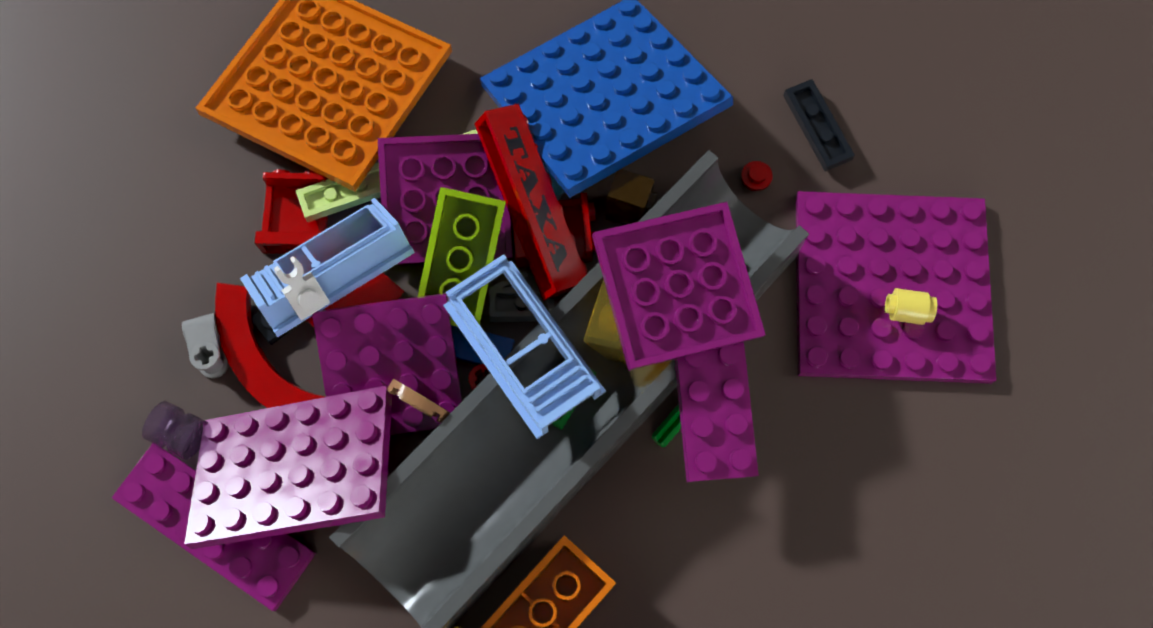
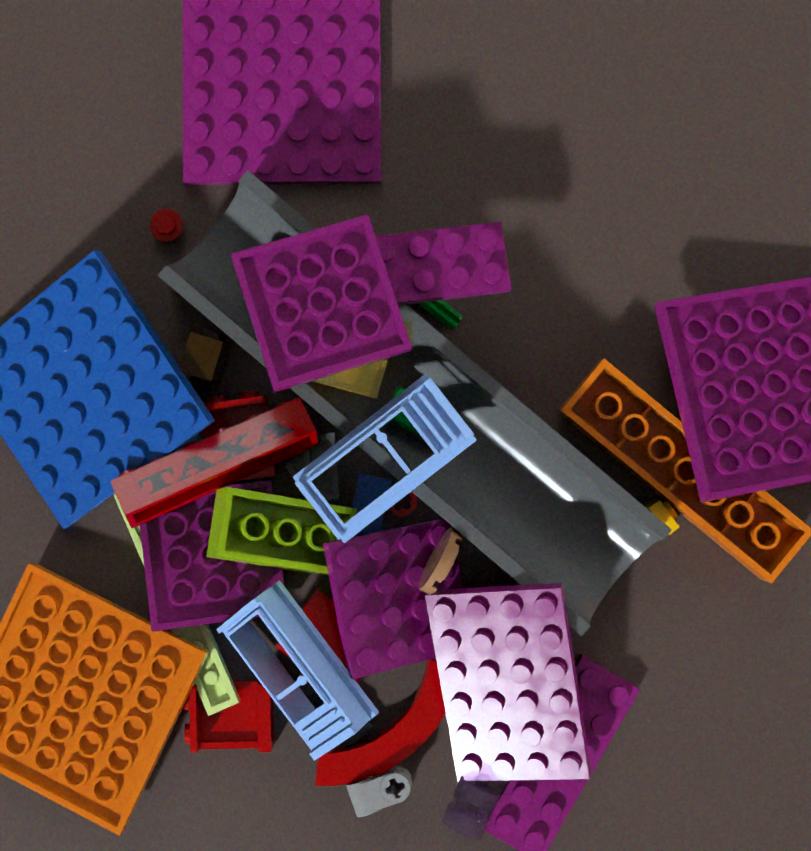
camera: 90 degrees left, 15 degrees up
(302, 292) = (334, 690): white plate -> none
(818, 125) = (104, 159): black plate -> none
(911, 306) = (311, 67): light yellow brick -> none

